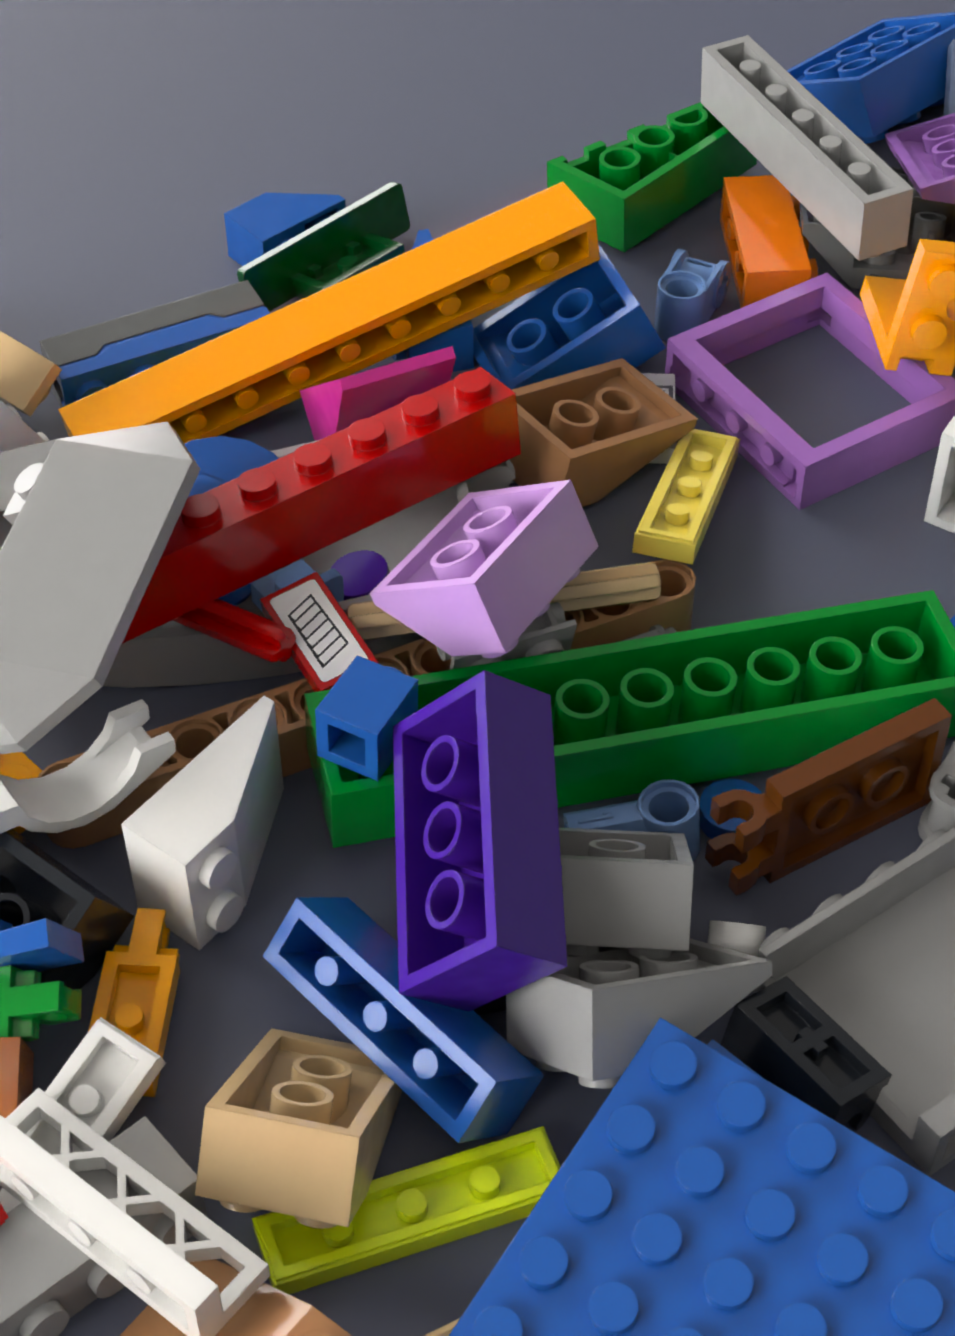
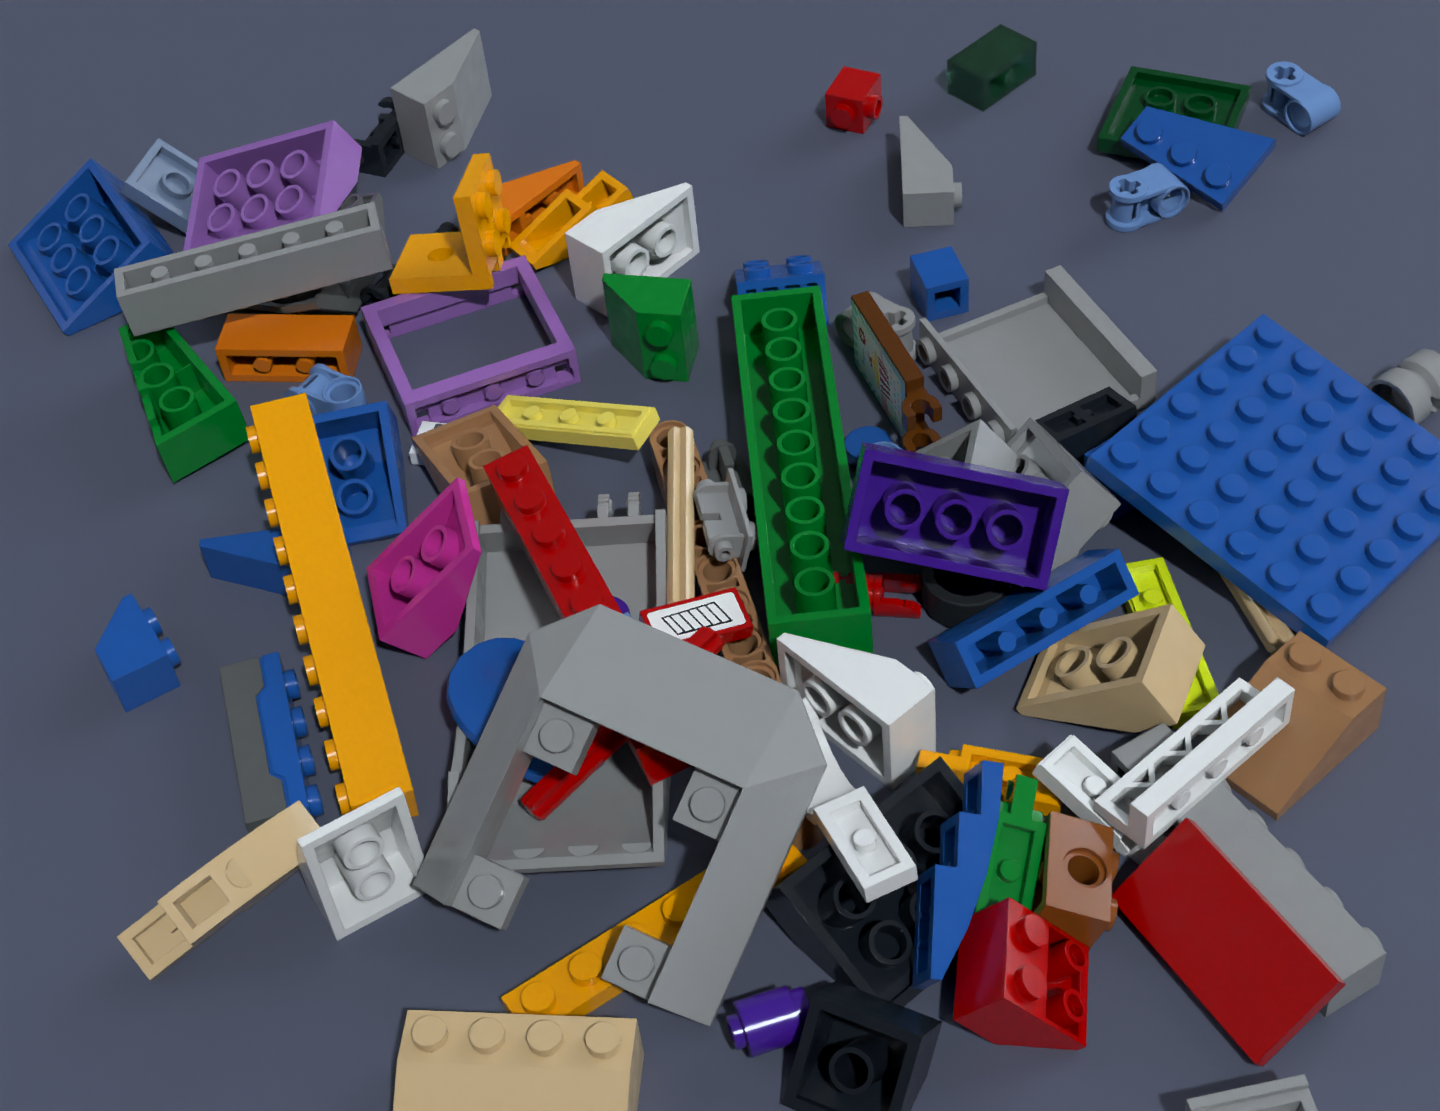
camera: 75 degrees left, 0 degrees up
(332, 249) = (200, 614): dark green bracket -> none
(360, 715) = (820, 572): blue brick -> none
(490, 568) = (686, 491): lavender slope -> none
(868, 531) = (653, 324): none -> green slope

